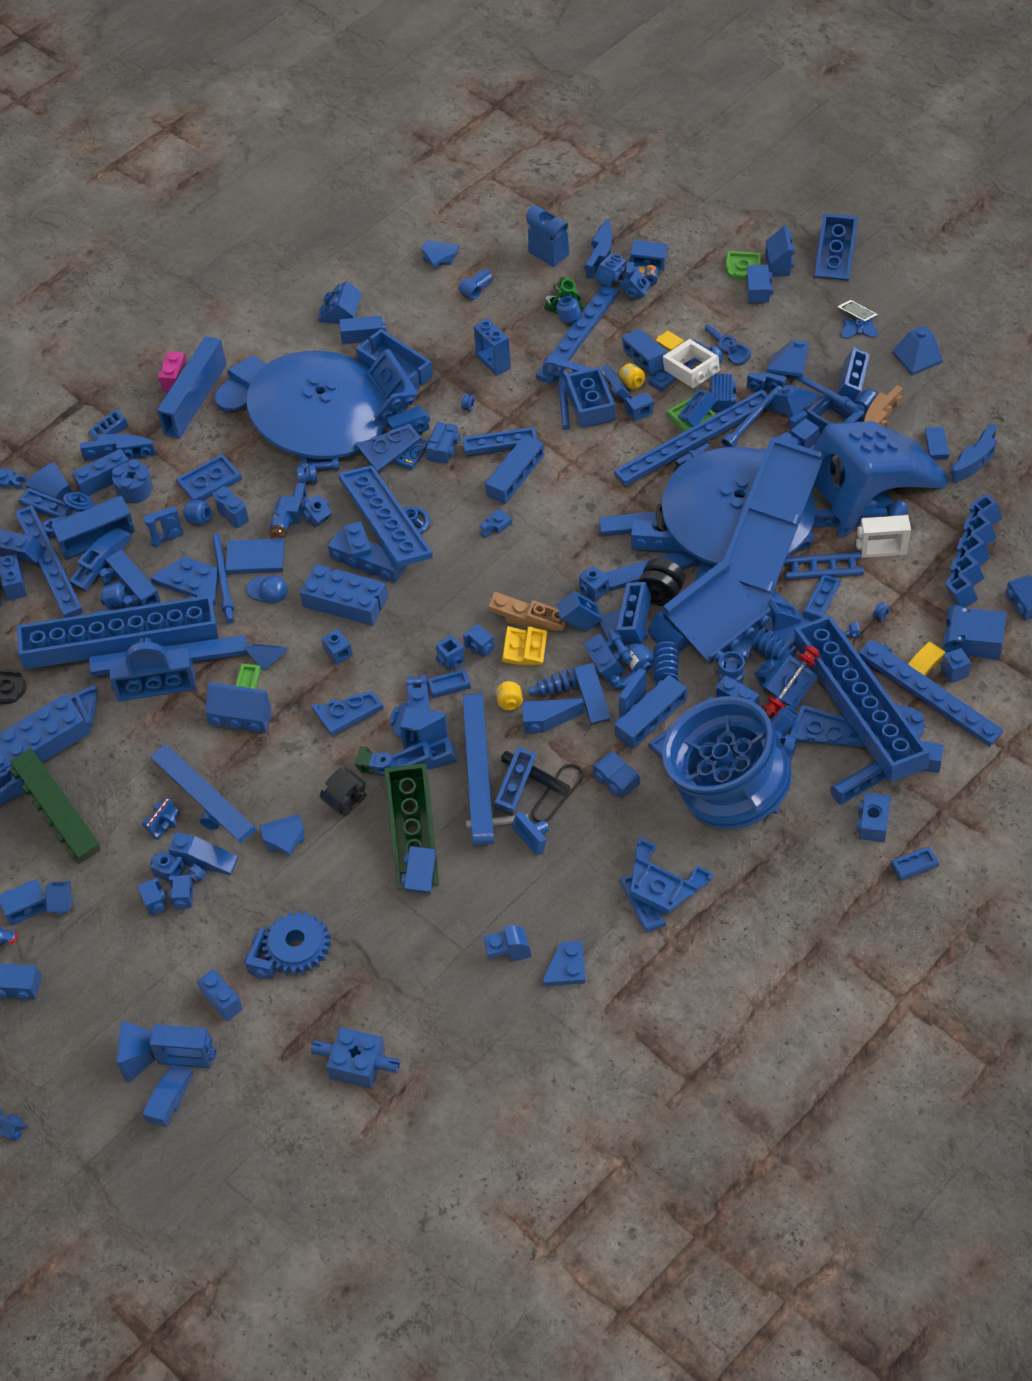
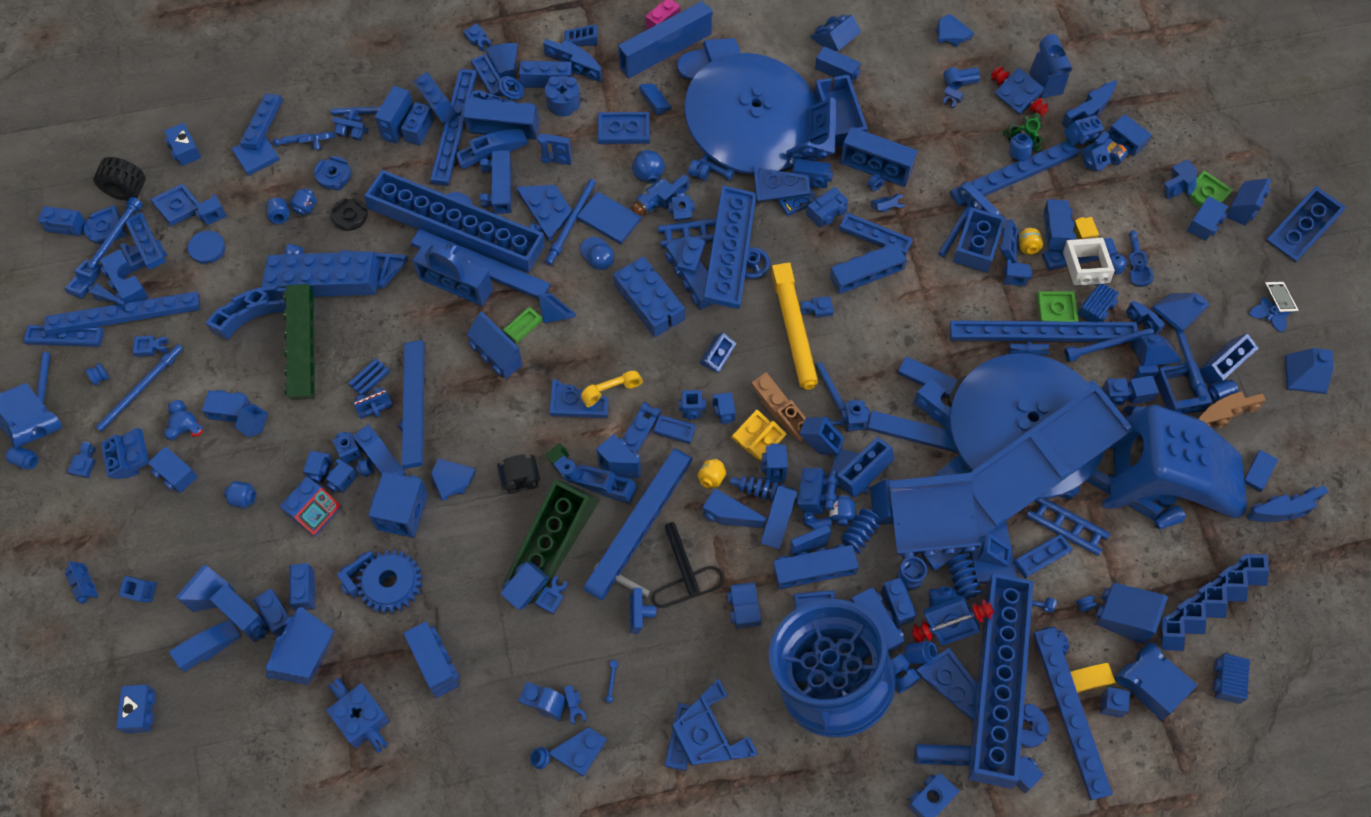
camera: 30 degrees right, 10 degrees up
(55, 1090) = (137, 589): none -> blue brick
(98, 960) = (240, 494): none -> blue head
(113, 595) = (478, 185): blue head -> none
(135, 788) = (366, 375): none -> blue tile
(146, 1182) = (135, 709): none -> blue brick
(173, 931) = (310, 506): none -> slope
(197, 512) = (591, 152): blue head -> none
(218, 441) = (654, 98): none -> blue slope
(223, 1031) = (272, 611): none -> blue brick
(230, 507) = (619, 163): blue brick -> none
(255, 877) = (398, 504): none -> blue brick
(258, 495) = (648, 166): none -> blue plant
(263, 1035) = (299, 649): none -> blue piece
(330, 525) = (702, 224): none -> blue bar
(336, 646) = (610, 339): blue brick -> none
(358, 692) = (592, 393): none -> yellow piece
(386, 972) = (432, 659): none -> blue brick
(397, 715) = (619, 431): blue plate -> none
(437, 605) = (718, 352): none -> blue slope
(448, 868) = (551, 598): none -> blue plate
(452, 520) = (784, 287): none -> yellow brick
(453, 378) = (878, 156): none -> blue brick
(480, 300) = (952, 94): none -> blue tile
(488, 413) = (883, 204): none -> blue plate
(493, 346) = (929, 143): blue window -> none
(515, 780) = (655, 557): blue brick -> none
(533, 269) = (1019, 91): none -> blue plate
(534, 934) = (573, 699): none -> blue plate
(538, 989) = (539, 758): none -> blue plate
(543, 887) = (614, 665): none -> blue hinge
(554, 576) = (830, 386): none -> blue bar
(557, 653) = (775, 463): none -> blue brick
(662, 579) = (911, 452): black wheel -> none
(697, 407) = (1064, 306): blue slope -> none
(717, 266) = (1183, 180): none -> blue brick
(883, 526) = (1140, 534): white window -> none
(919, 595) = (1130, 612): none -> blue slope

